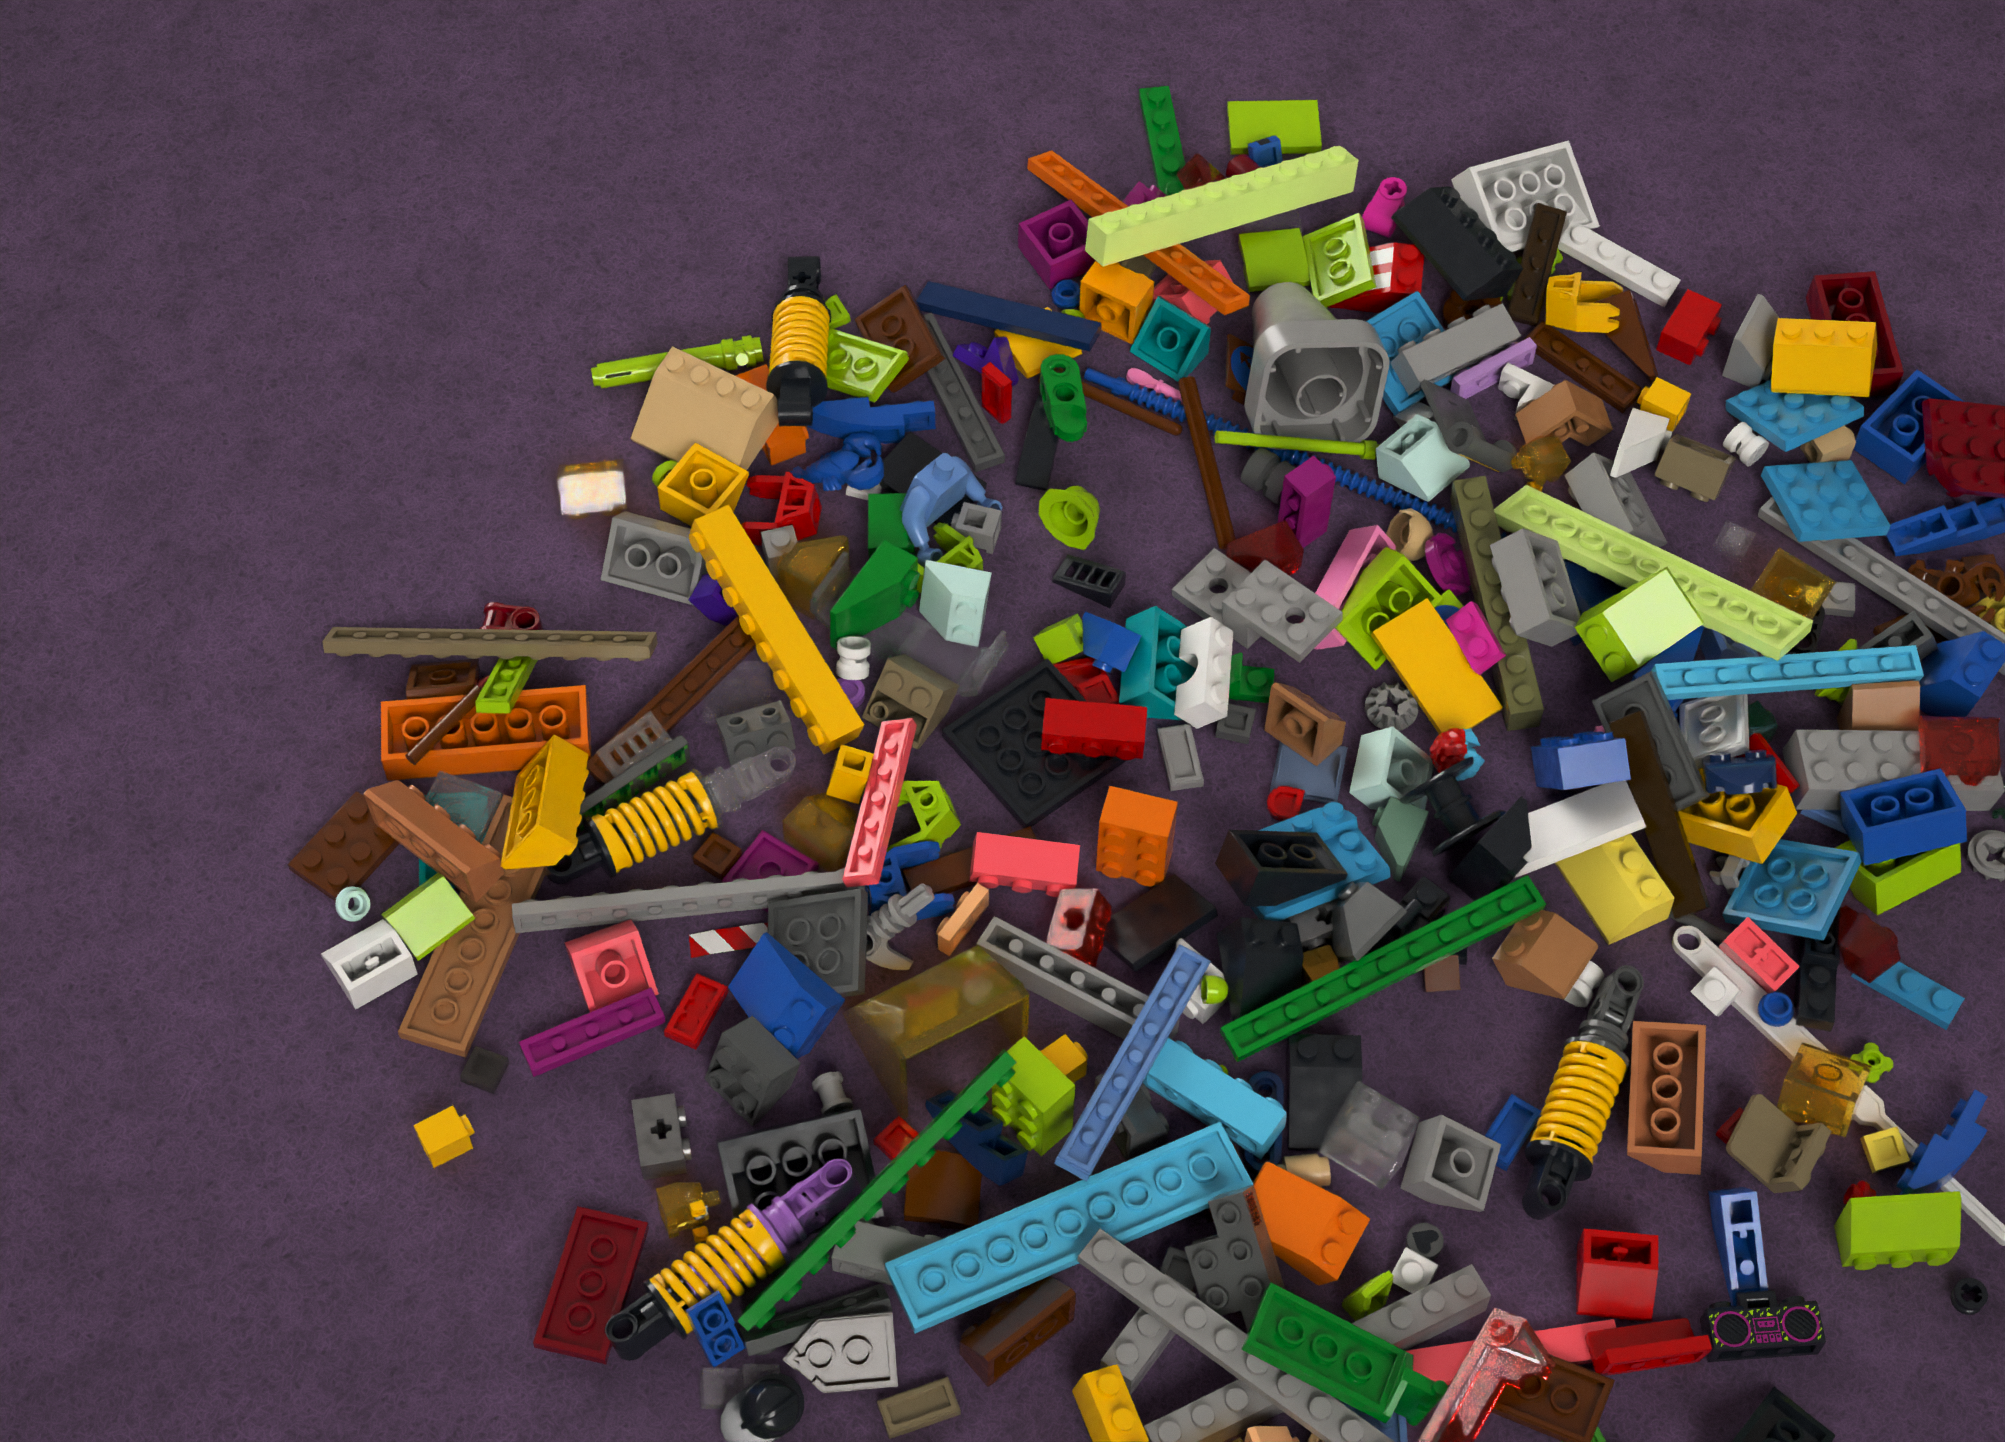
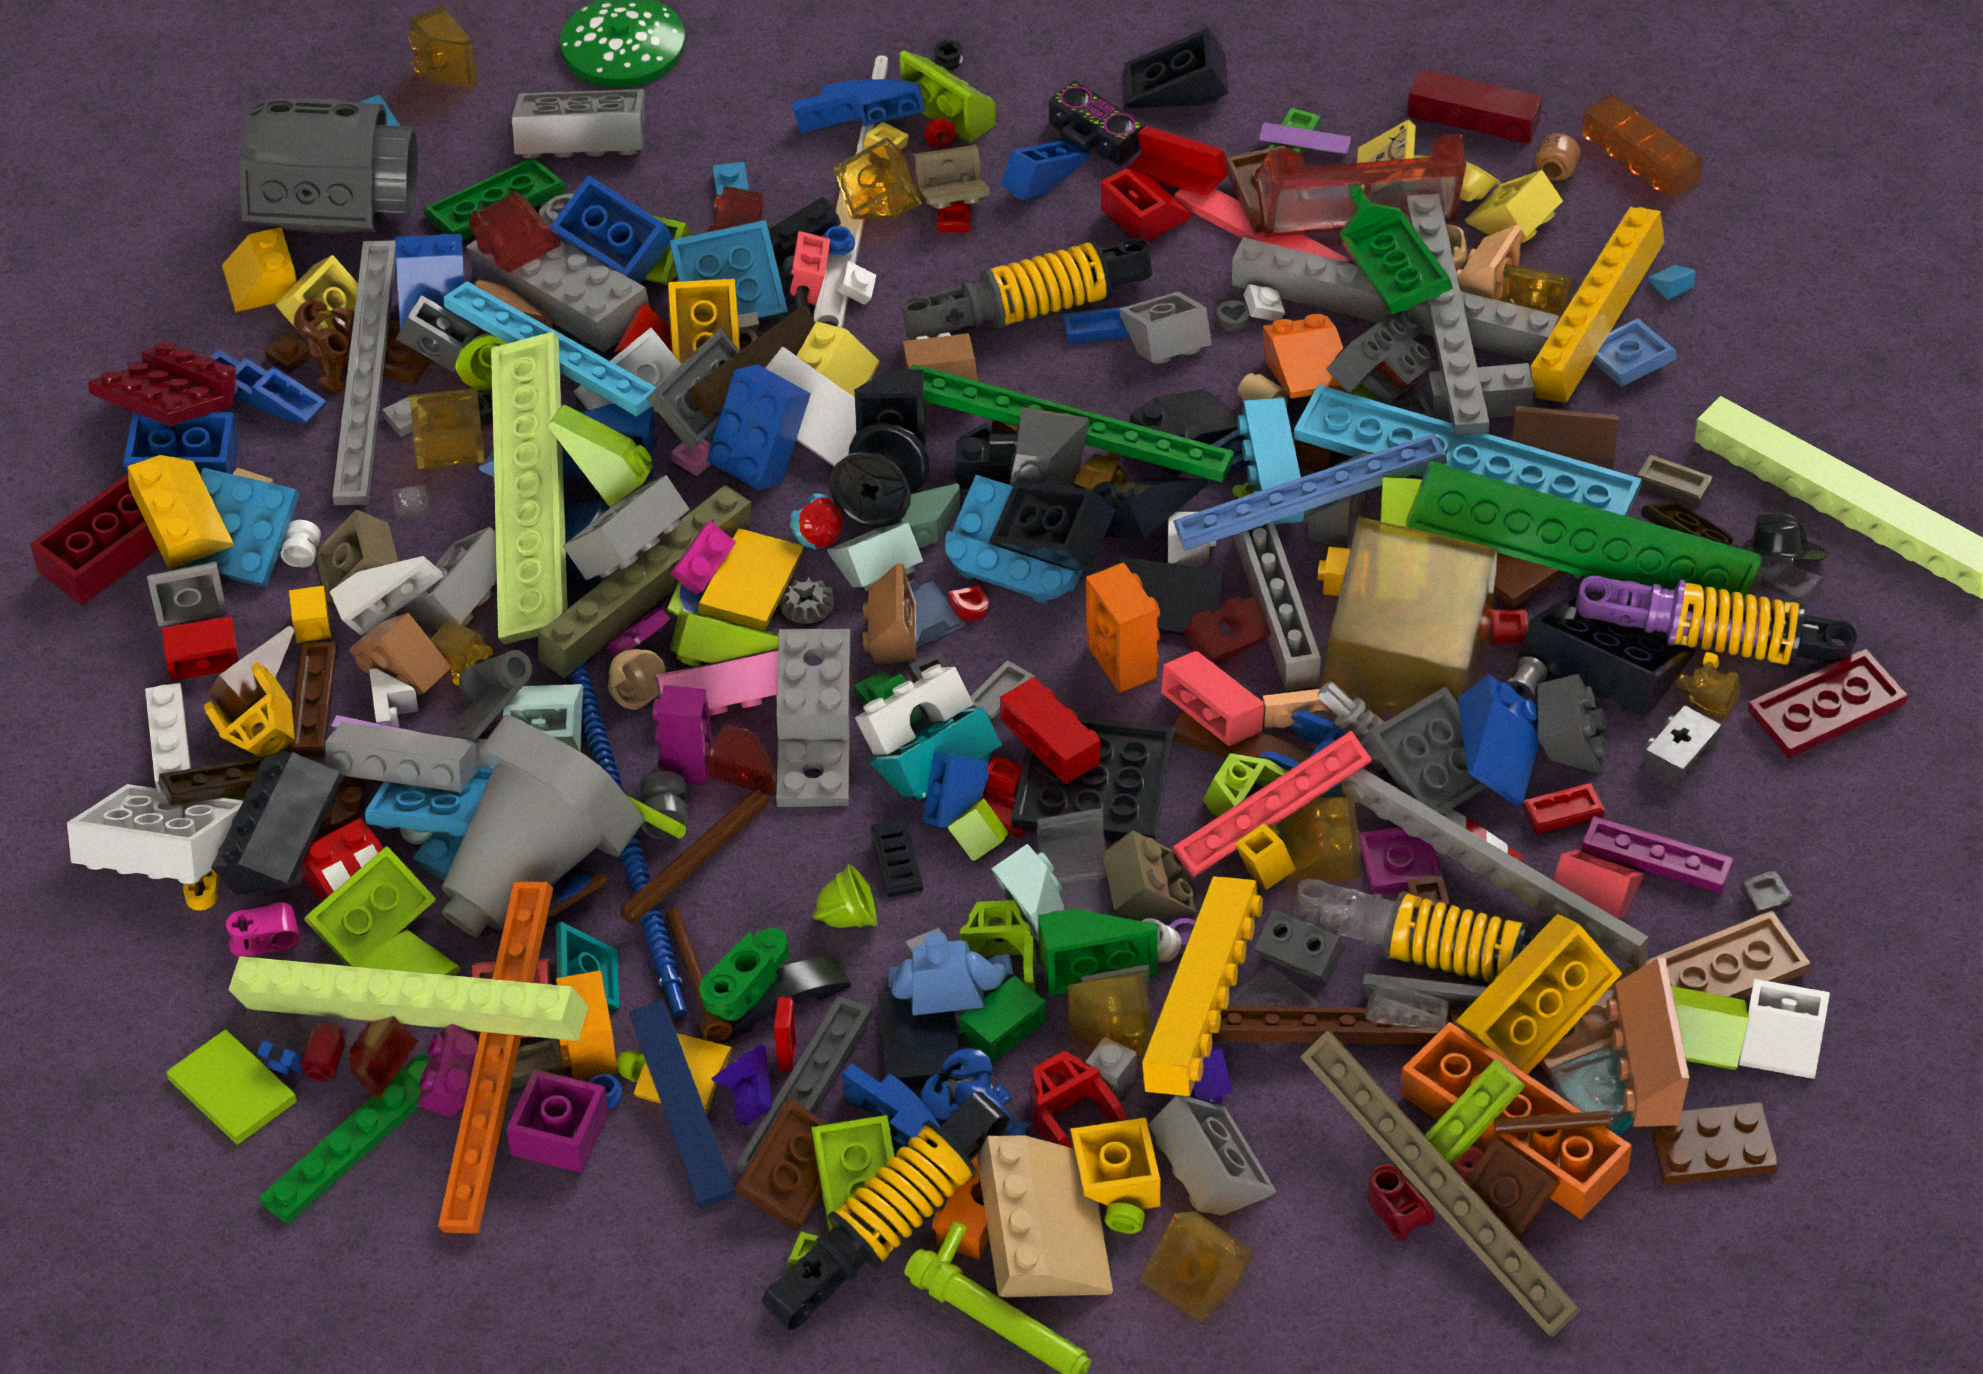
camera: 130 degrees left, 10 degrees down
(360, 907) = (1753, 1089): light aqua plate -> none
(444, 1136) = (1842, 869): yellow brick -> none
(715, 1329) = (1773, 588): blue slope -> none
(1146, 380) = (643, 973): bright pink piece -> none
(1213, 989) = (1192, 504): lime hinge -> none
(1369, 1296) = (1314, 275): lime slope -> none
(1370, 1135) = (1196, 370): clear slope -> none
(1667, 1096) = (975, 243): nougat slope -> none
(1740, 774) = (682, 314): dark blue slope -> none
(1825, 500) = (321, 457): dark azure plate -> none
(1882, 1063) = (821, 184): lime plate -> none

